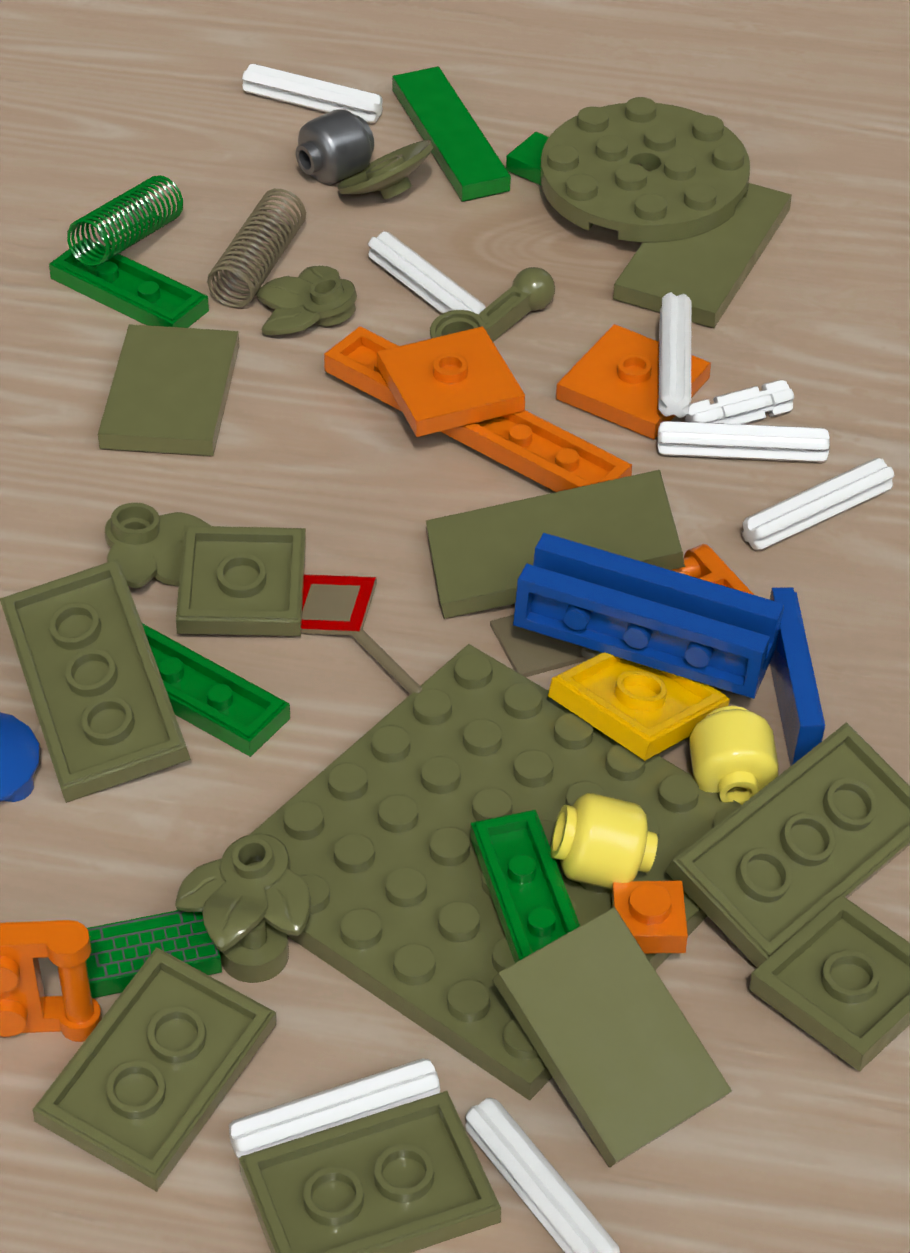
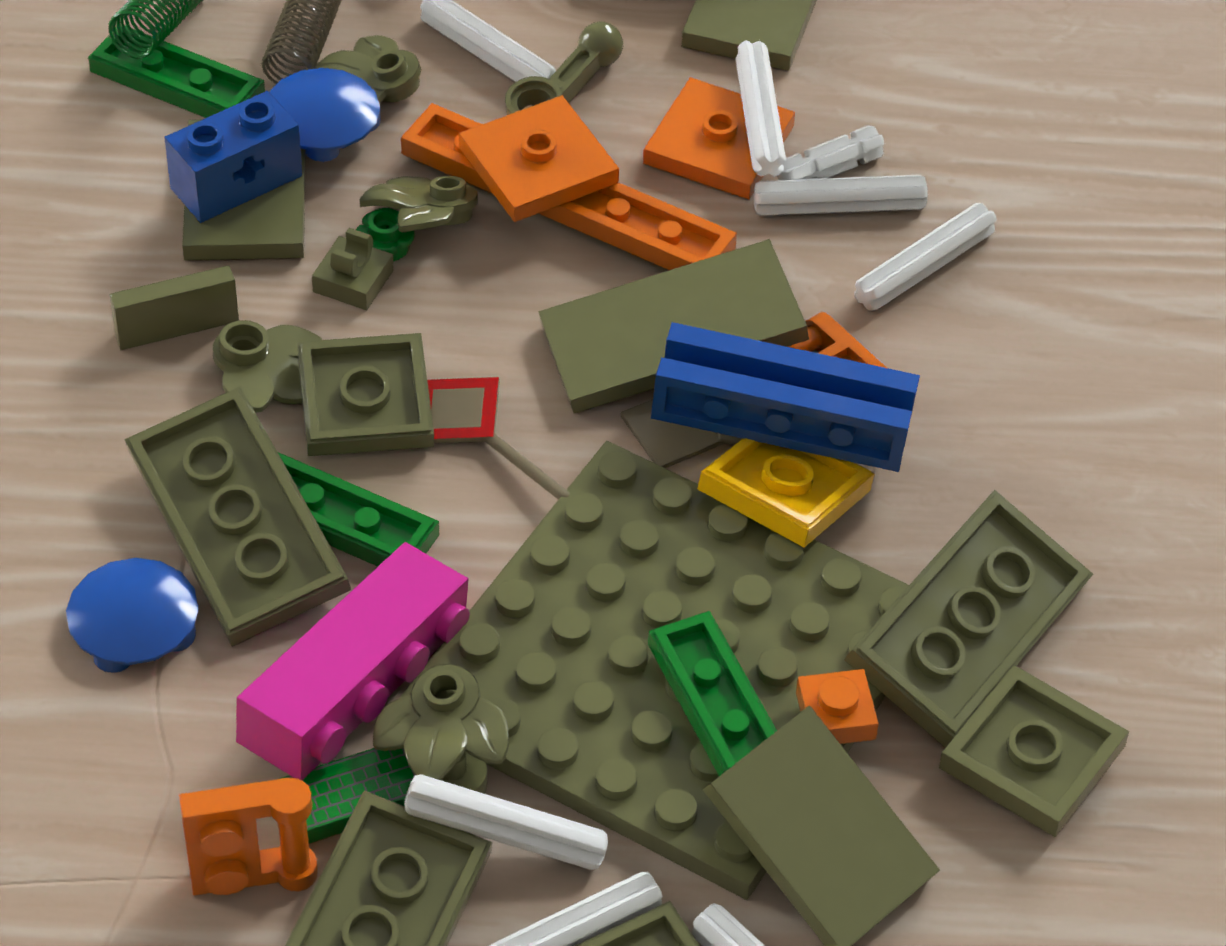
camera: 10 degrees left, 5 degrees up
(76, 486) = (174, 307): none -> olive tile
(158, 355) = (233, 156): none -> blue brick
(170, 824) = (351, 662): none -> dark pink brick
(254, 325) = (329, 108): none -> blue dish
(256, 469) = (353, 270): none -> olive tile
(293, 994) = (506, 822): none -> white axle
(294, 440) = (383, 227): none -> green plate
(336, 413) = (424, 201): none -> olive plate
(603, 841) = (782, 637): light yellow head -> none
(733, 753) = (889, 532): light yellow head -> none
(795, 680) = (936, 453): blue tile -> none

